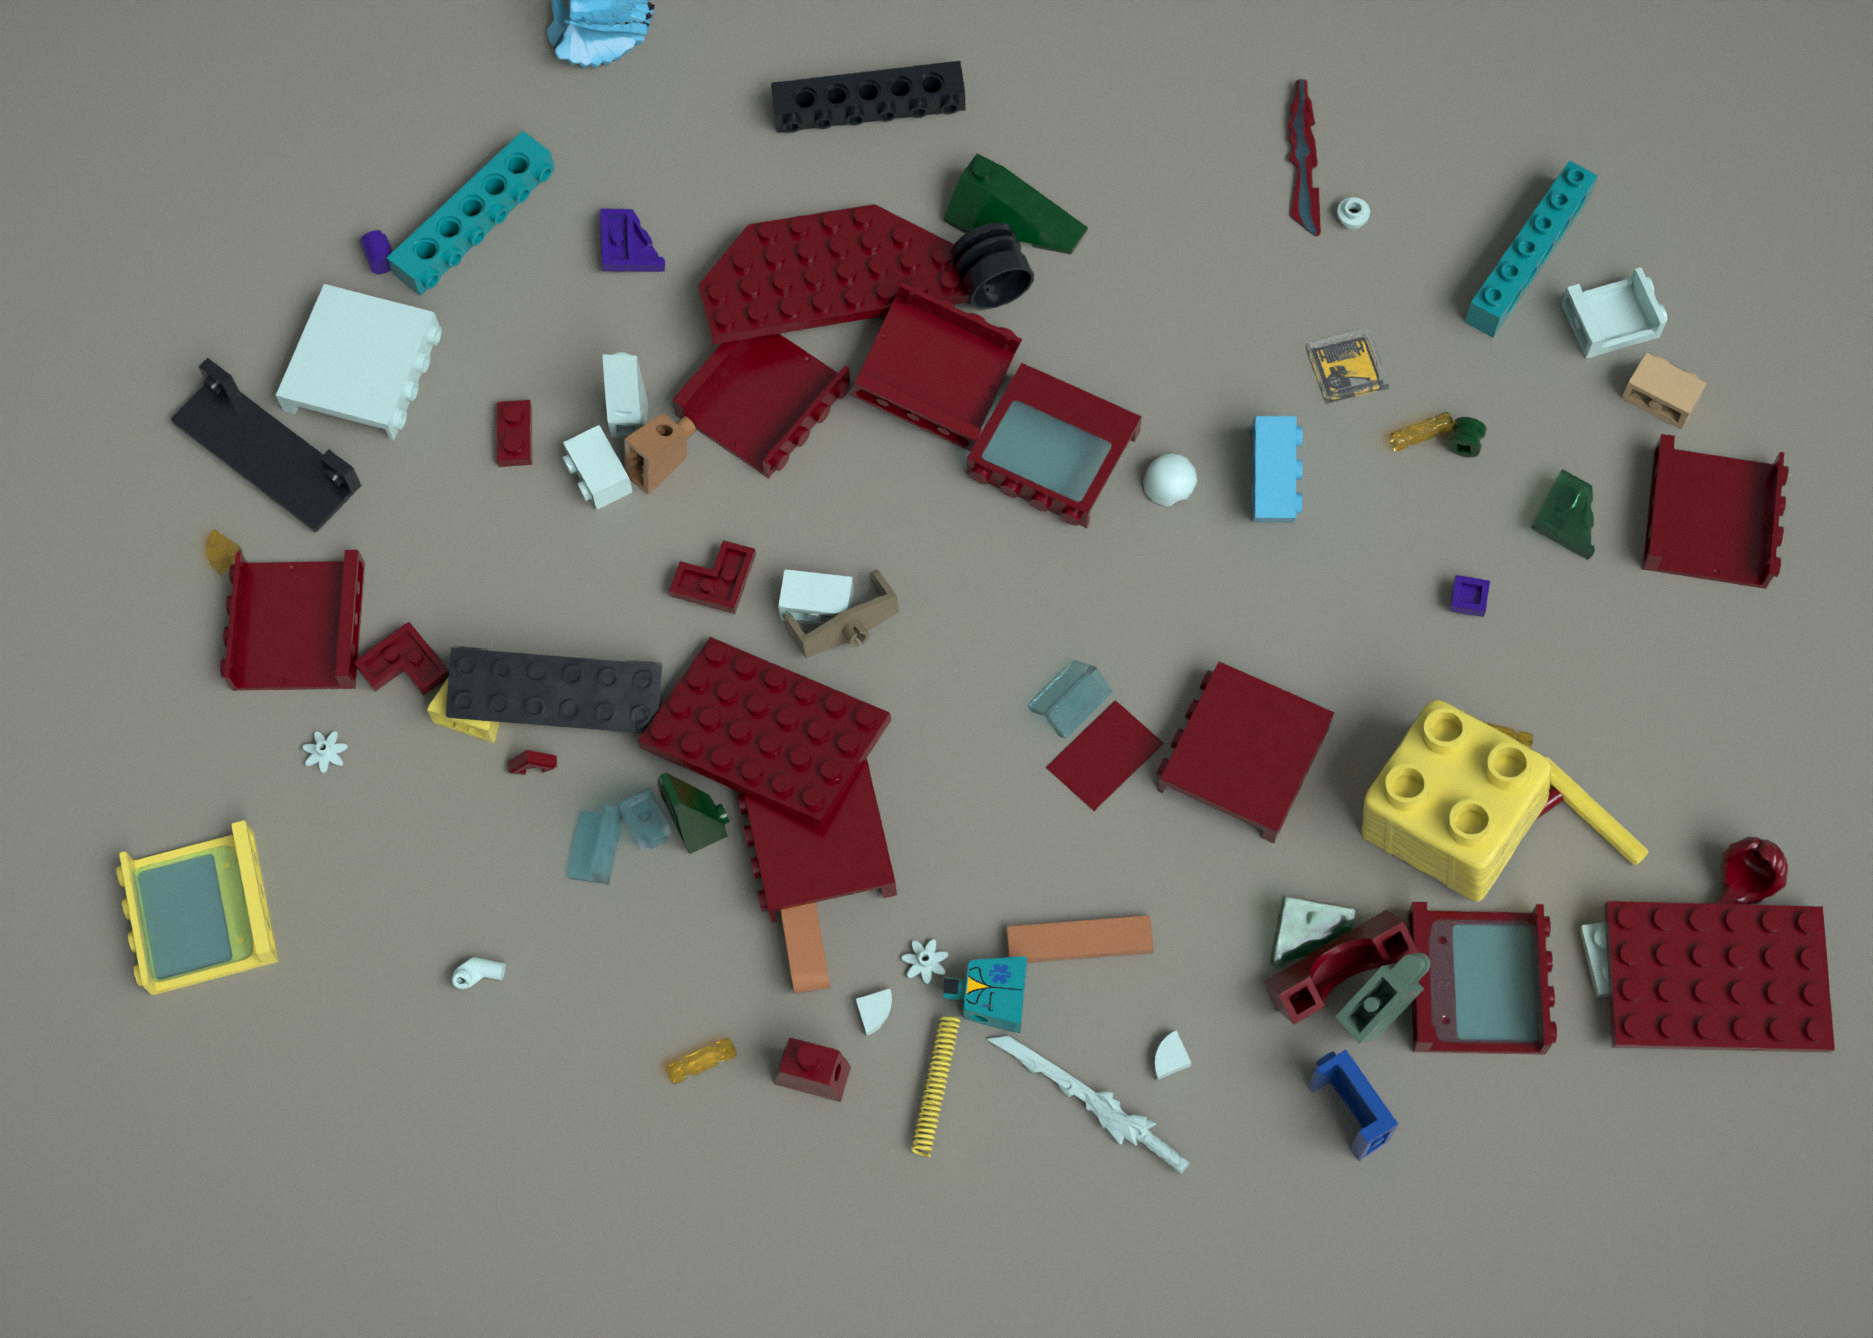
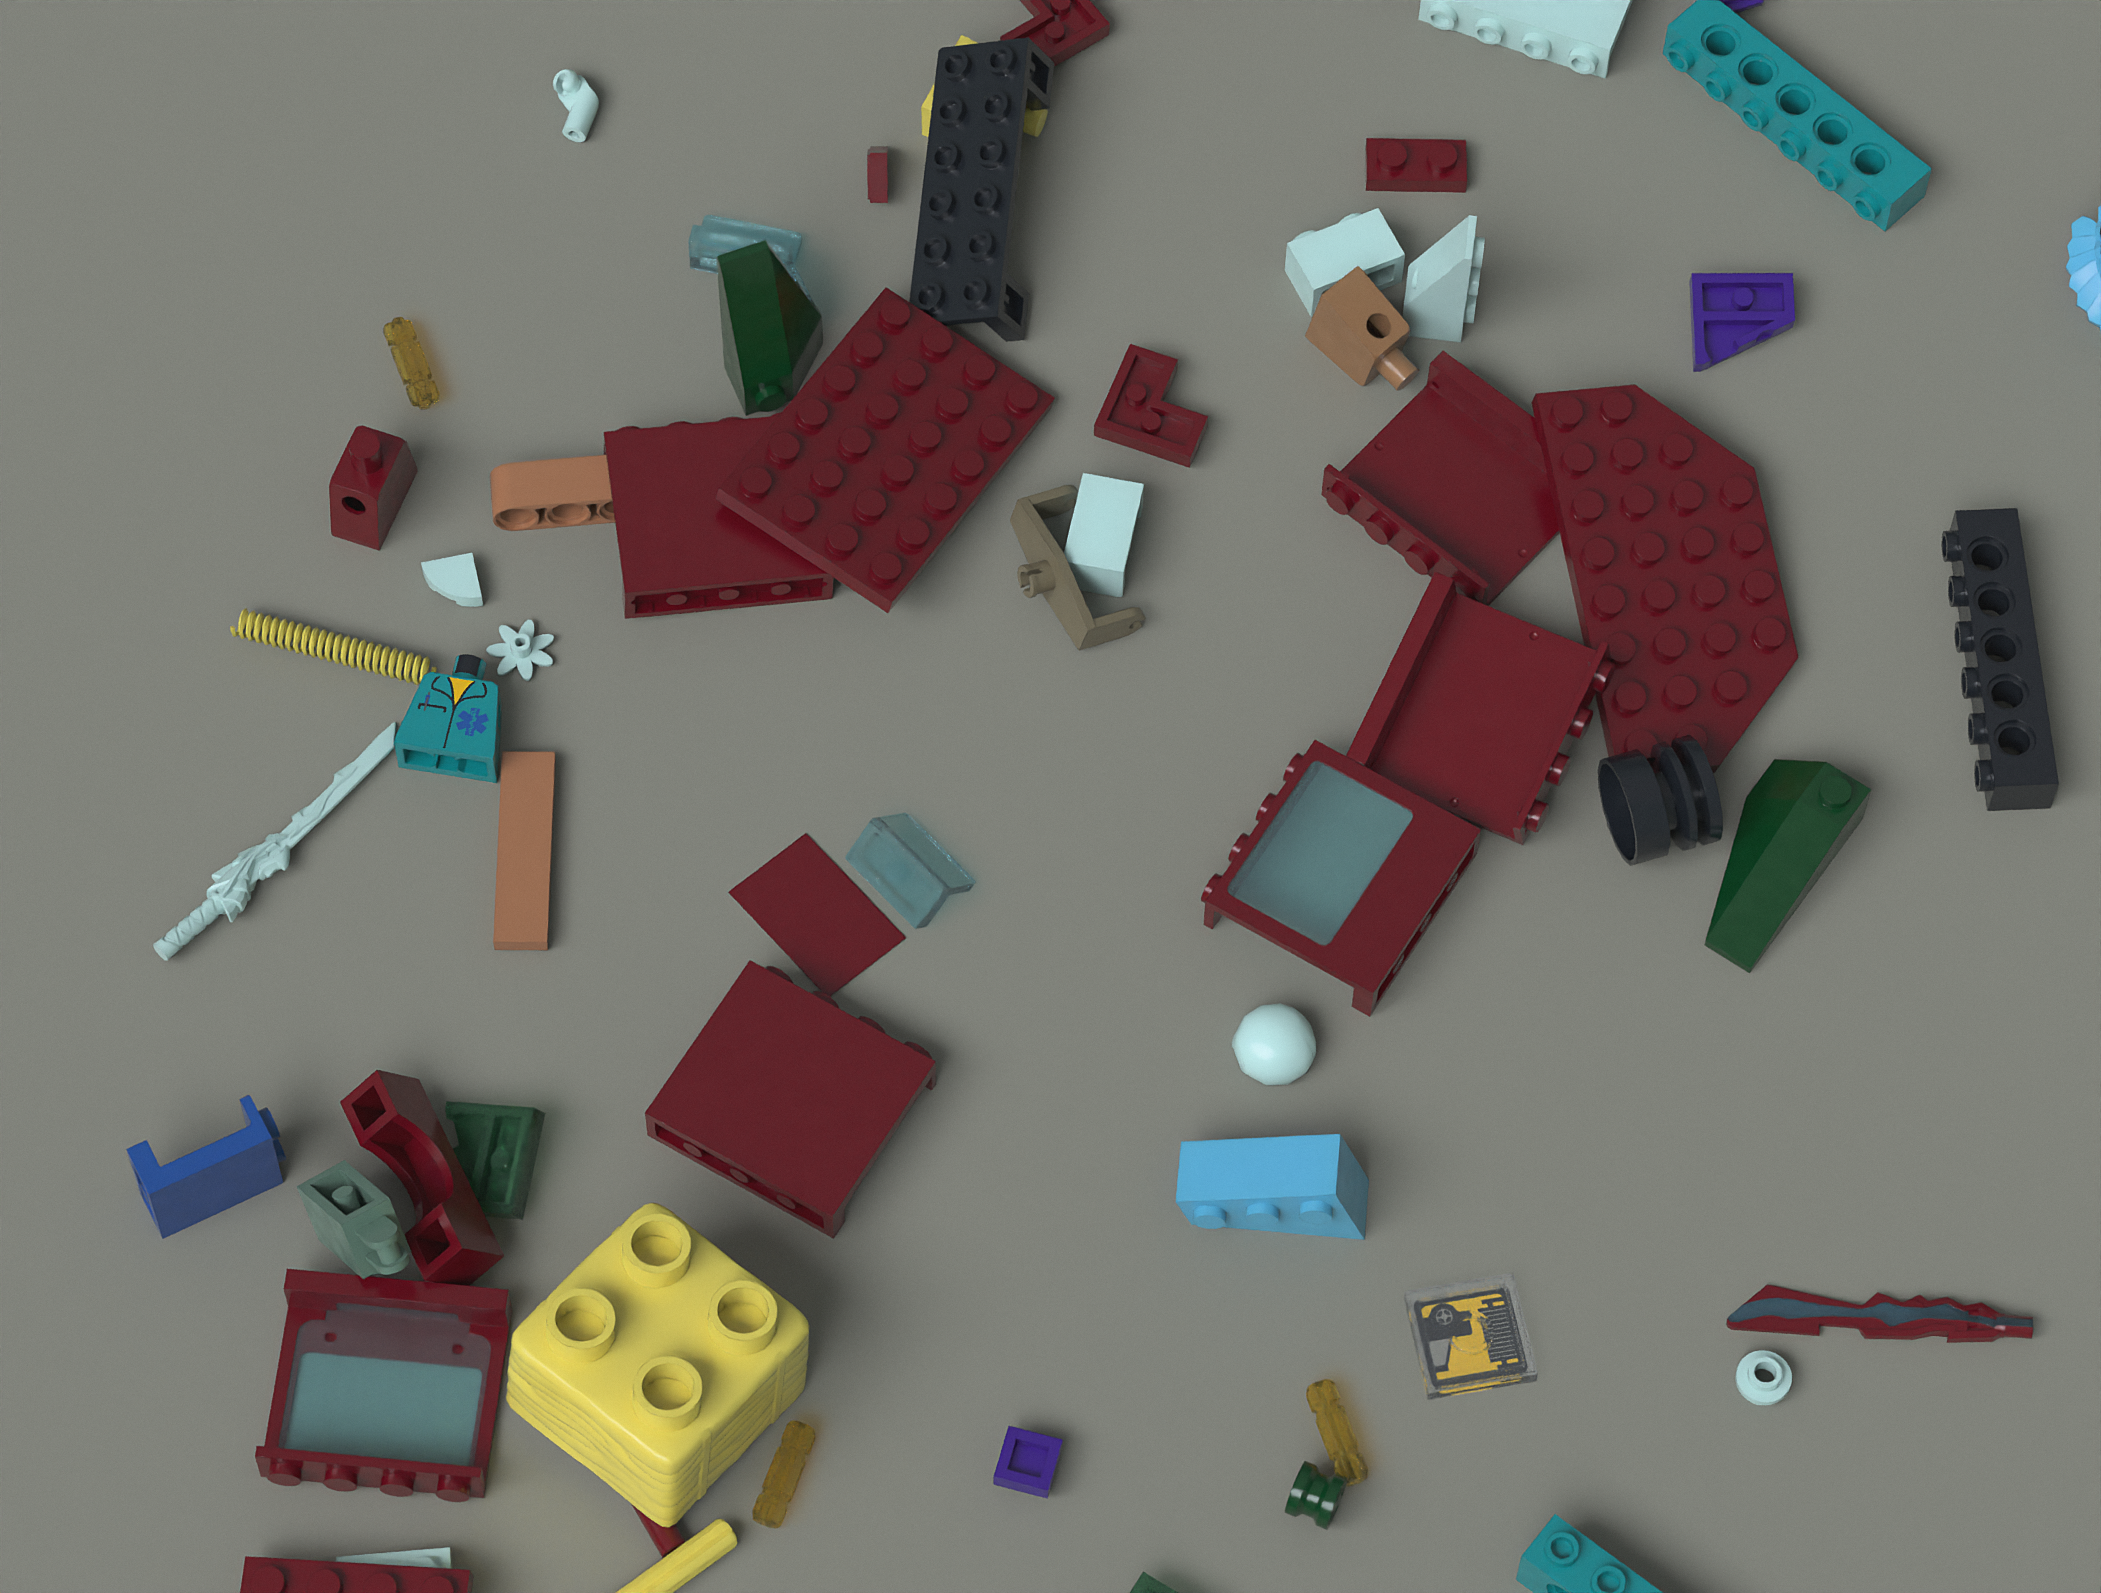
camera: 90 degrees right, 5 degrees down
(1170, 1056) = (331, 953): light aqua tile -> none

